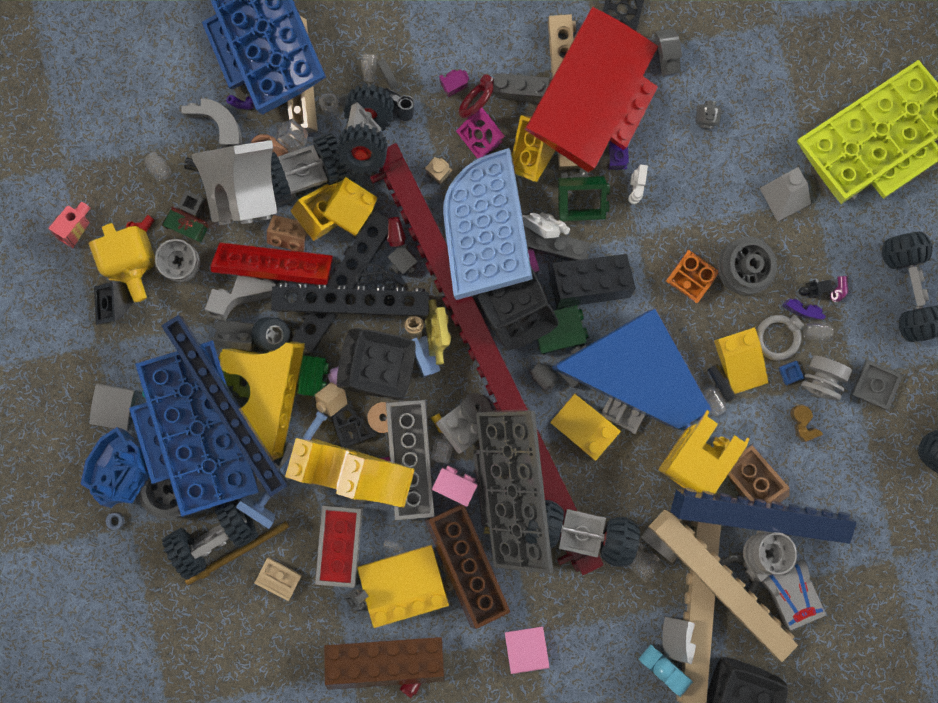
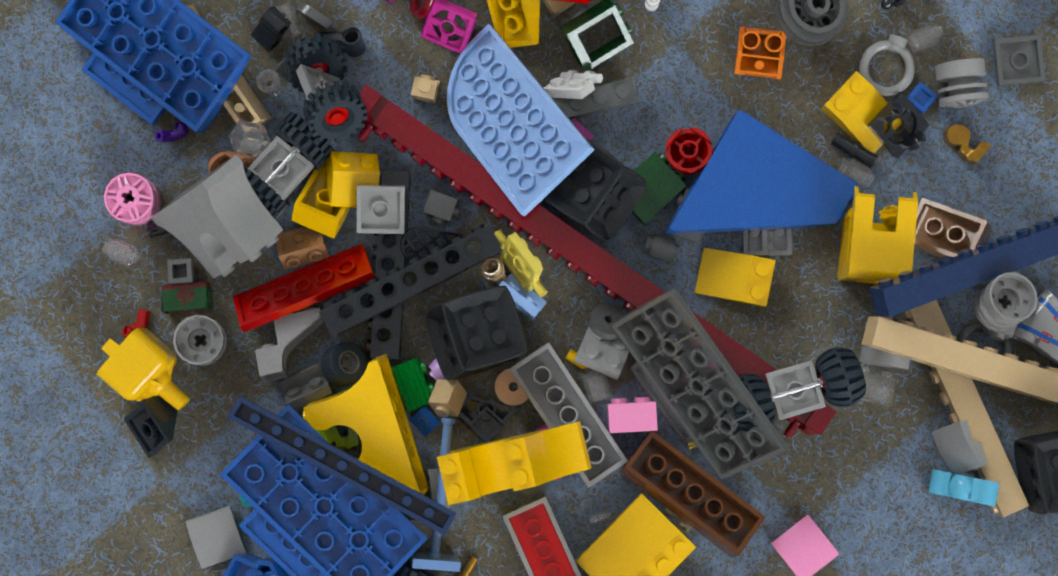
camera: 25 degrees left, 0 degrees up
(70, 224) = (62, 373): coral torso -> none
(193, 141) = (146, 201): none -> bright pink wheel
(229, 129) = (175, 168): light grey arch -> none
(306, 406) = (425, 421): none -> blue tile
(352, 66) = (271, 29): none -> black axle
(357, 237) = (380, 209): none -> light grey plate
(396, 234) = (419, 183): dark red cone -> none
(591, 280) = (655, 116): black brick -> none
(602, 318) = (688, 151): none -> red cylinder
(760, 371) = (888, 115): none -> black piece
(809, 312) = (904, 23): dark purple slope -> none

